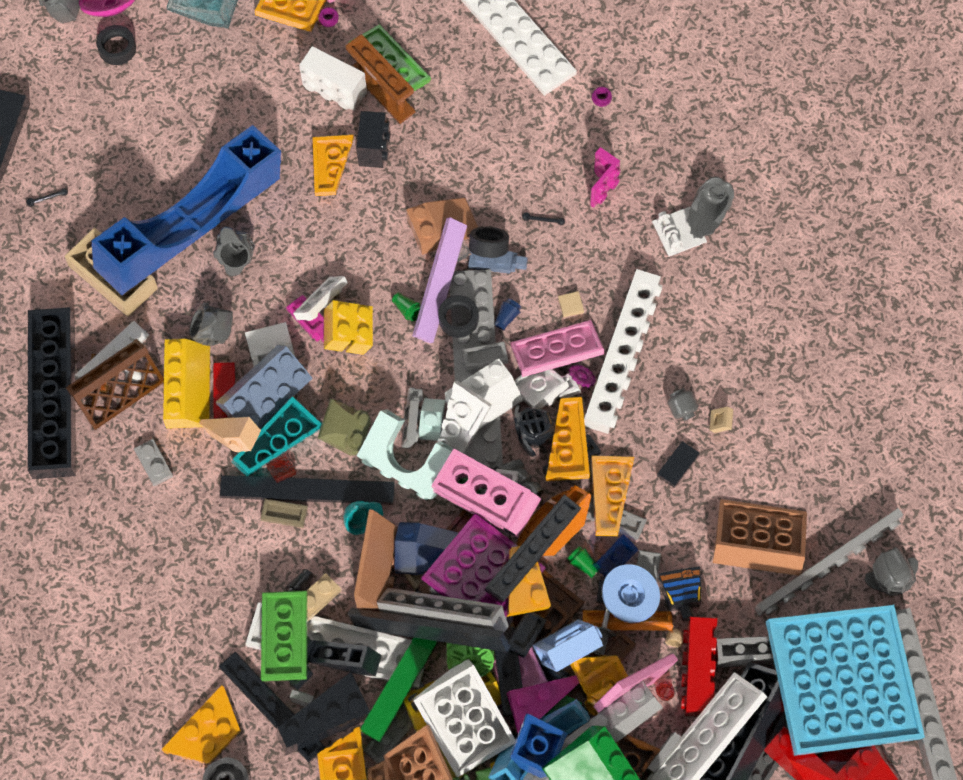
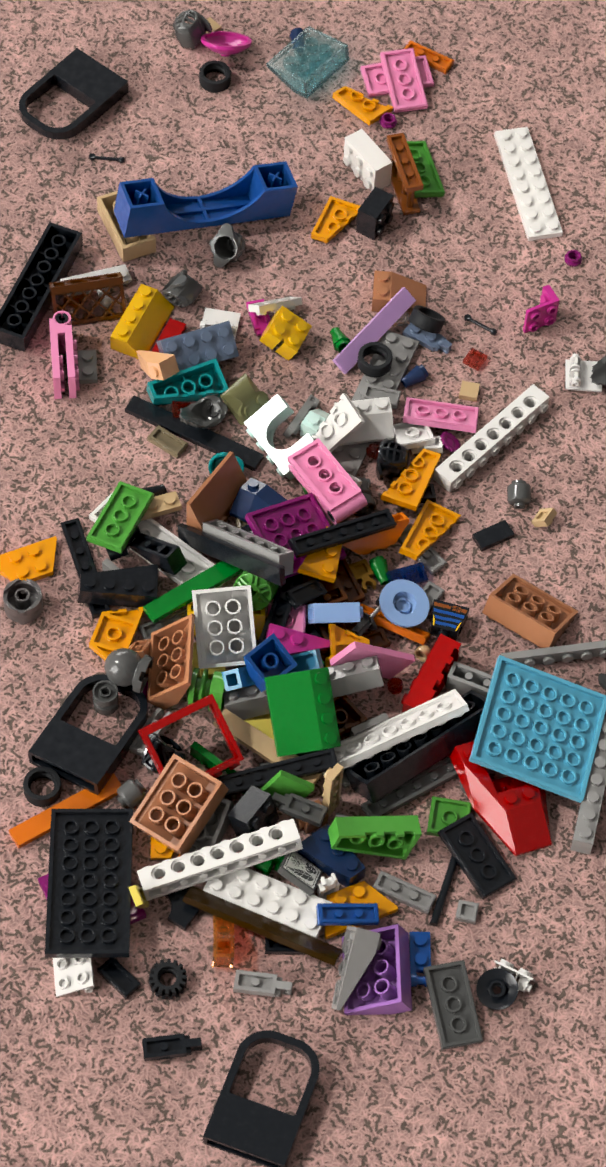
camera: 20 degrees right, 10 degrees down
(111, 447) = (63, 343): none -> bright pink hinge
(309, 465) = (204, 413): none -> dark grey hair
(506, 423) = (372, 451): none -> clear red hinge
(558, 263) = (475, 359): none -> clear red tile
(567, 575) = (363, 574): none -> pearl gold plate

